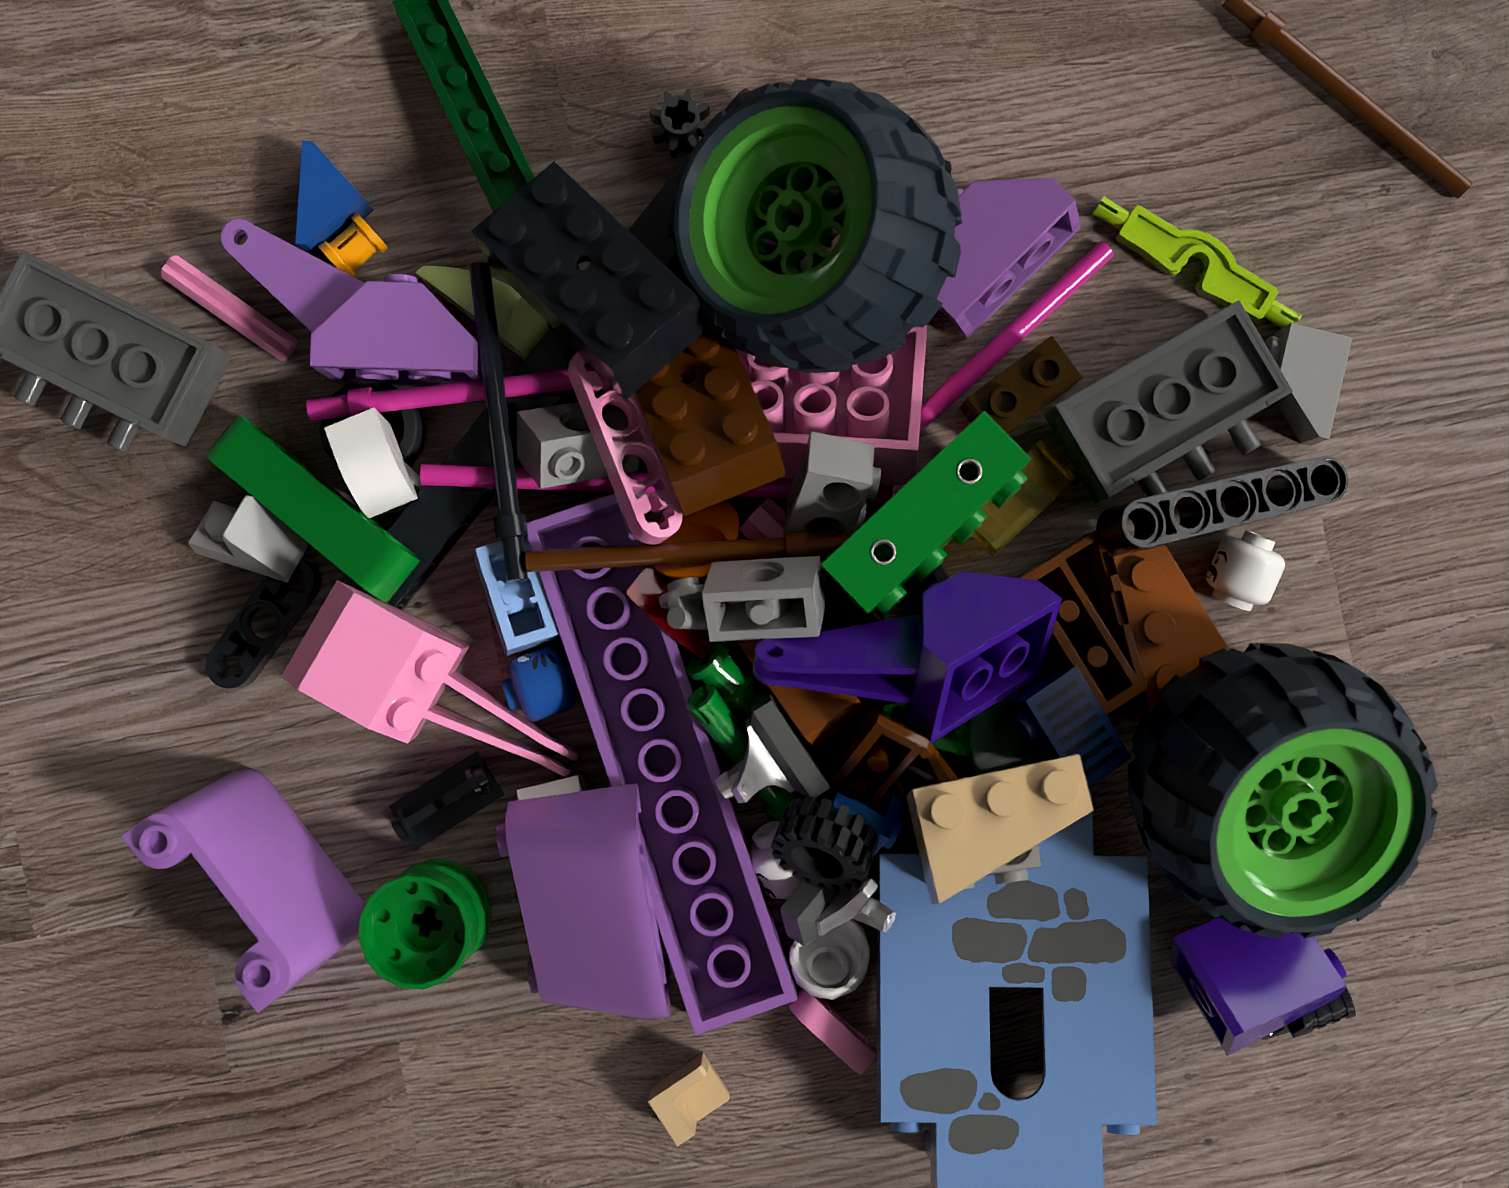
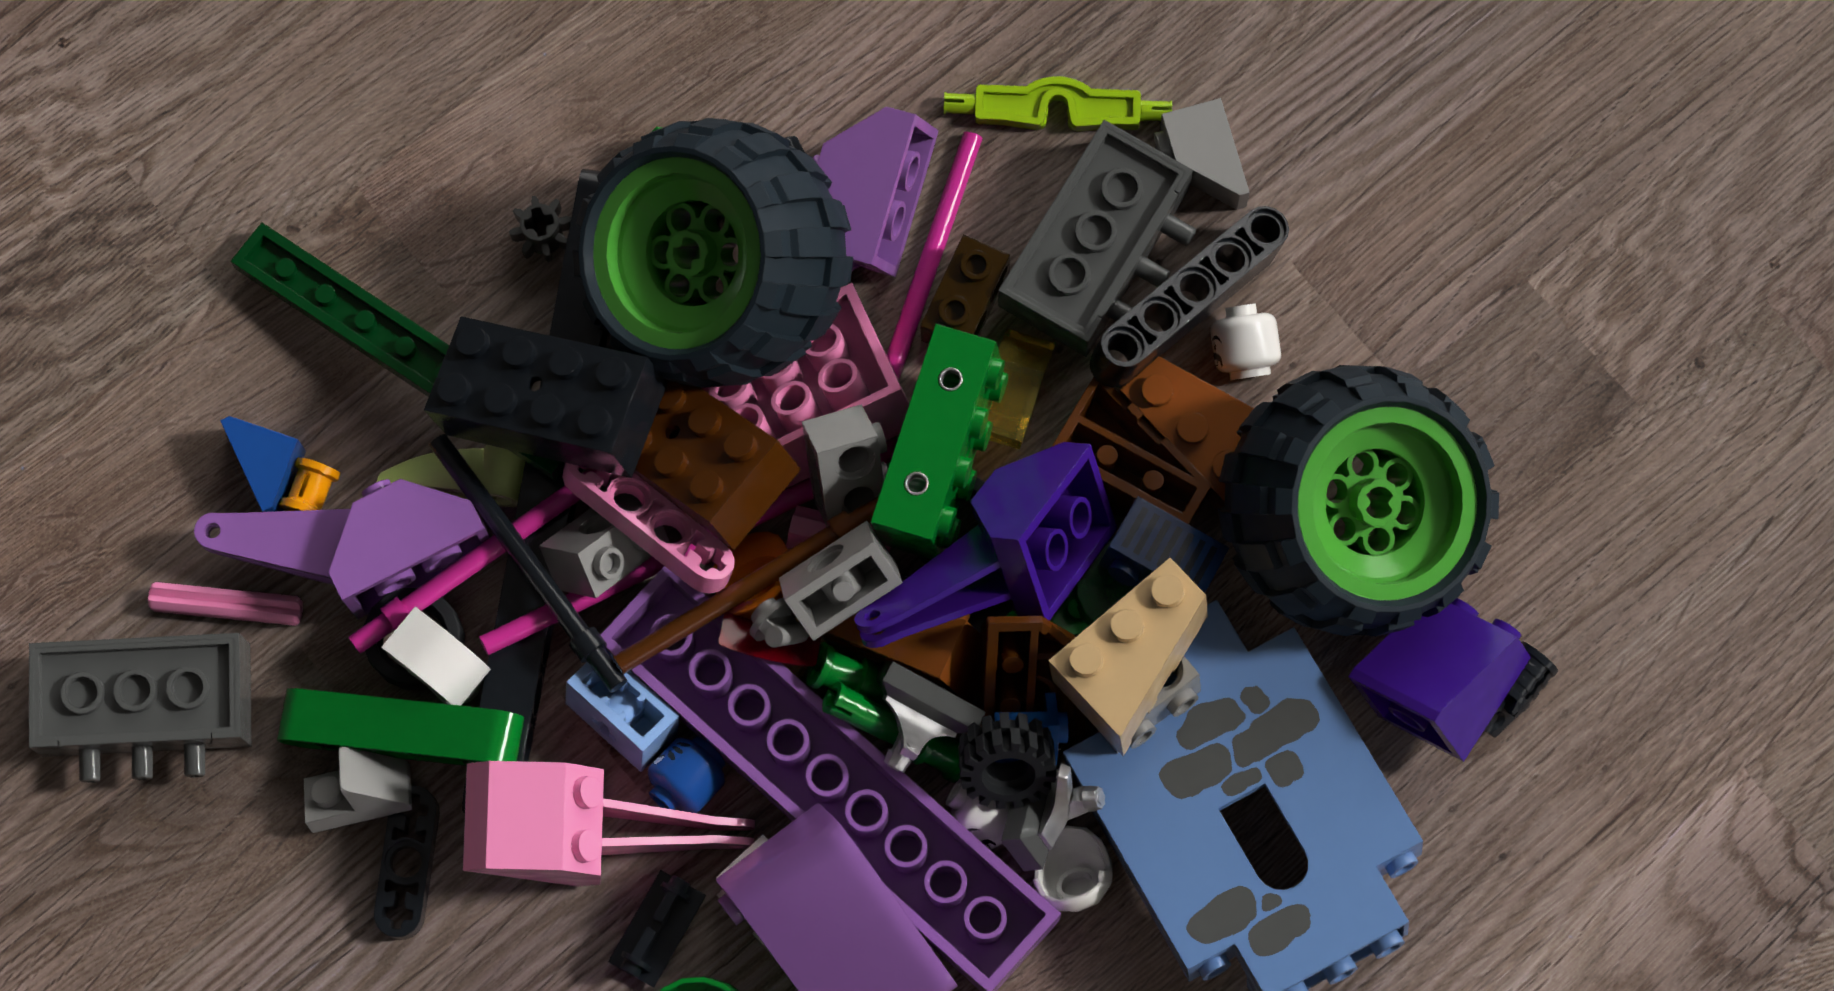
camera: 25 degrees left, 10 degrees down
(834, 1031) = (1113, 936): bright pink beam -> none

